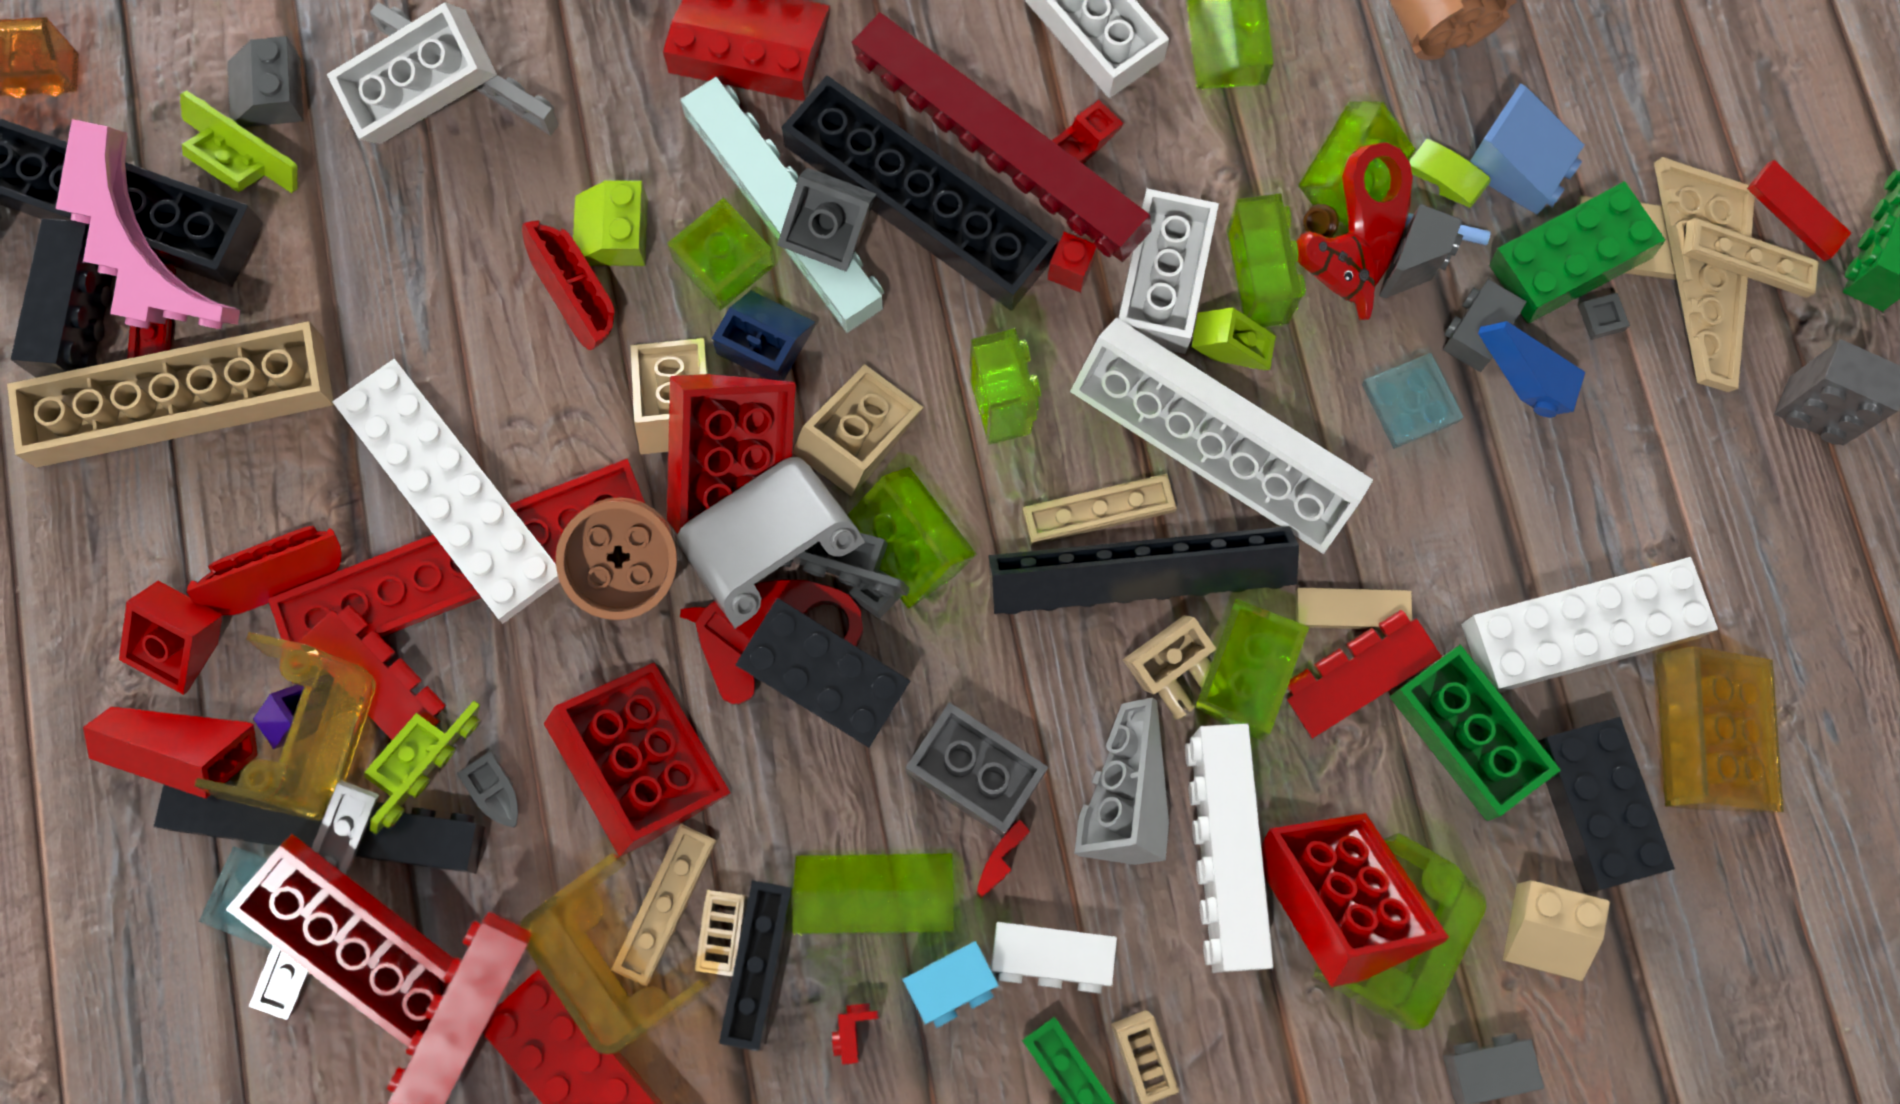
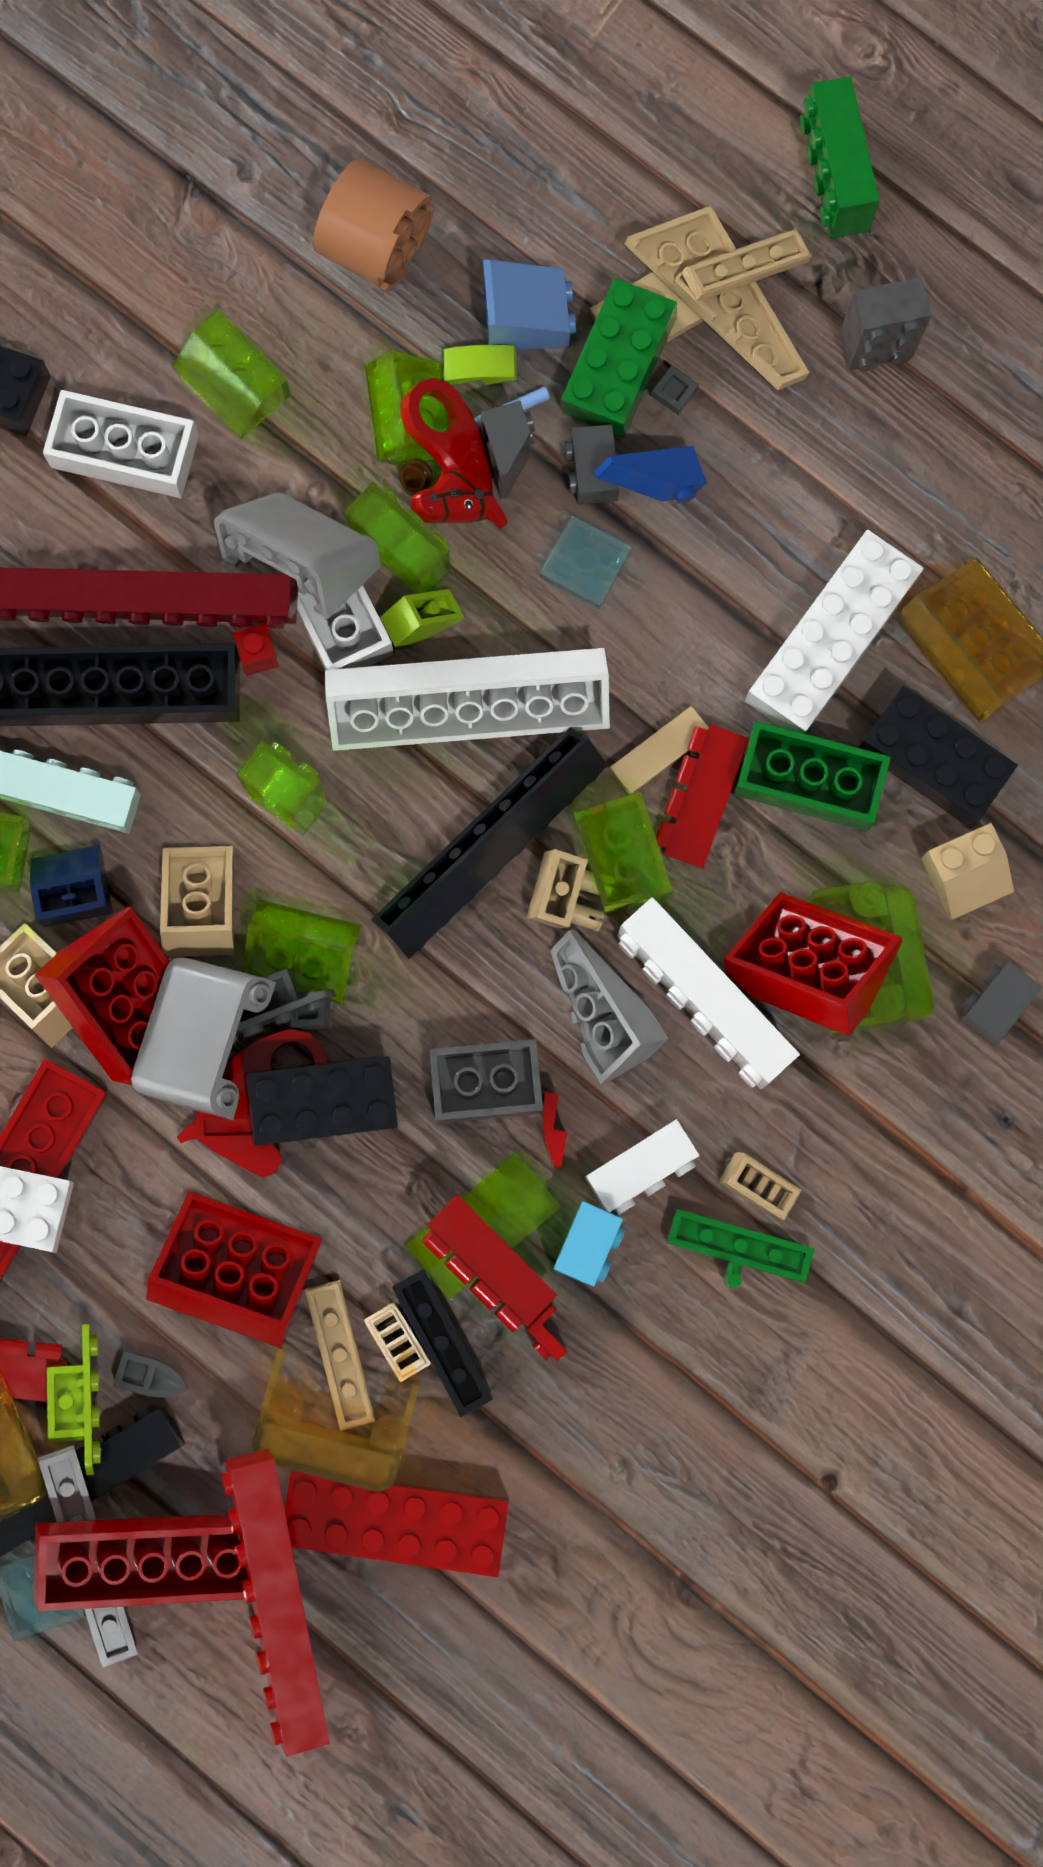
camera: 40 degrees left, 5 degrees up
(597, 581) = (132, 1144): nougat brick -> none
(826, 219) = (47, 762): dark grey slope -> none
(856, 937) = (485, 1255): none -> red windscreen
(1089, 132) = (187, 540): red slope -> none
(1099, 509) = (422, 821): tan tile -> none
(1184, 207) = (300, 543): none -> light grey windscreen
(1799, 210) = (754, 200): red tile -> none

